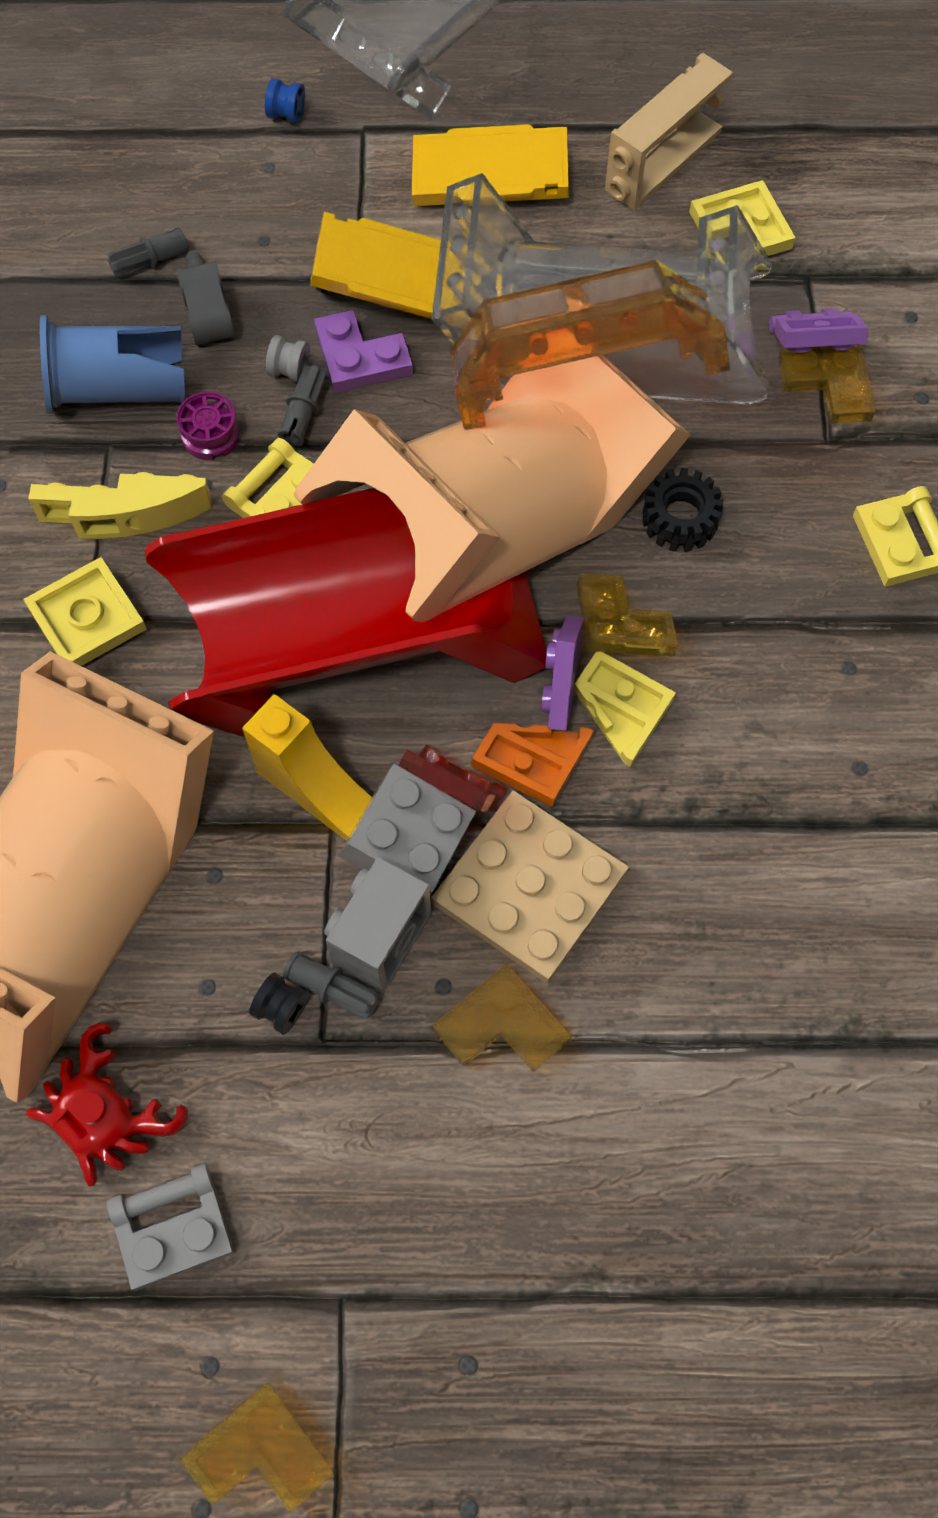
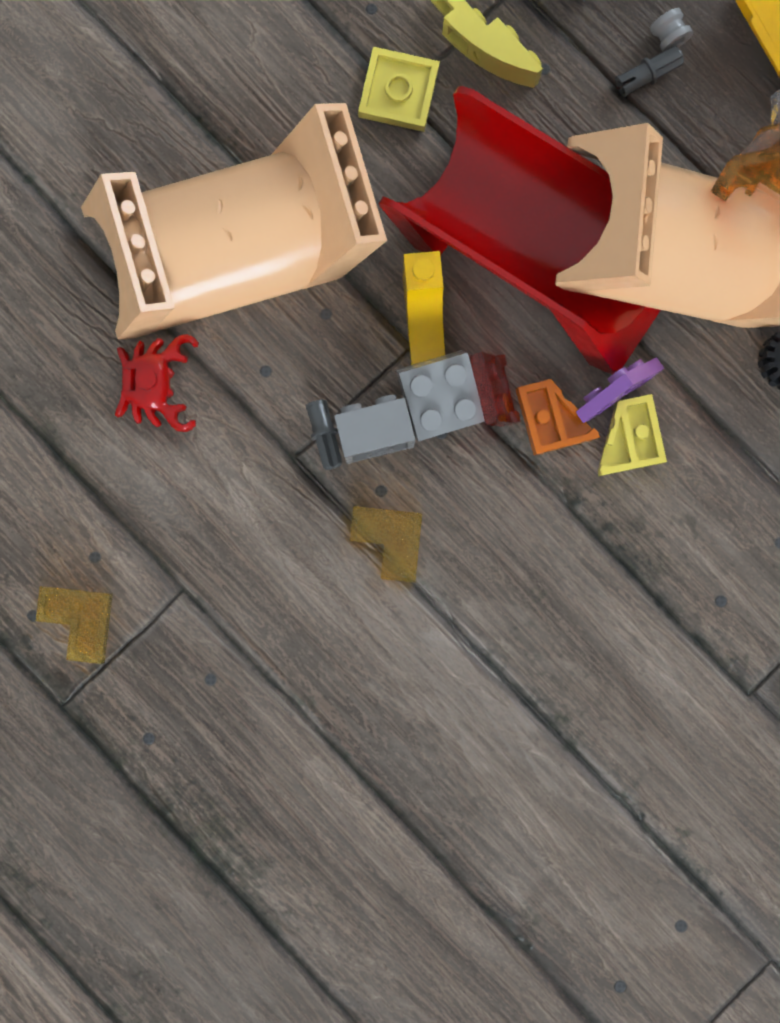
camera: 45 degrees right, 20 degrees up
(176, 1243) = (129, 484): light grey plate -> none
(207, 427) = (581, 31): magenta wheel -> none
(278, 1003) = (289, 417): black wheel -> none
(281, 493) = (581, 121): light yellow plate -> none
(356, 362) = (712, 73): medium lavender plate -> none
(529, 886) = (478, 484): tan plate -> none
(615, 627) = (676, 389): clear yellow plate -> none

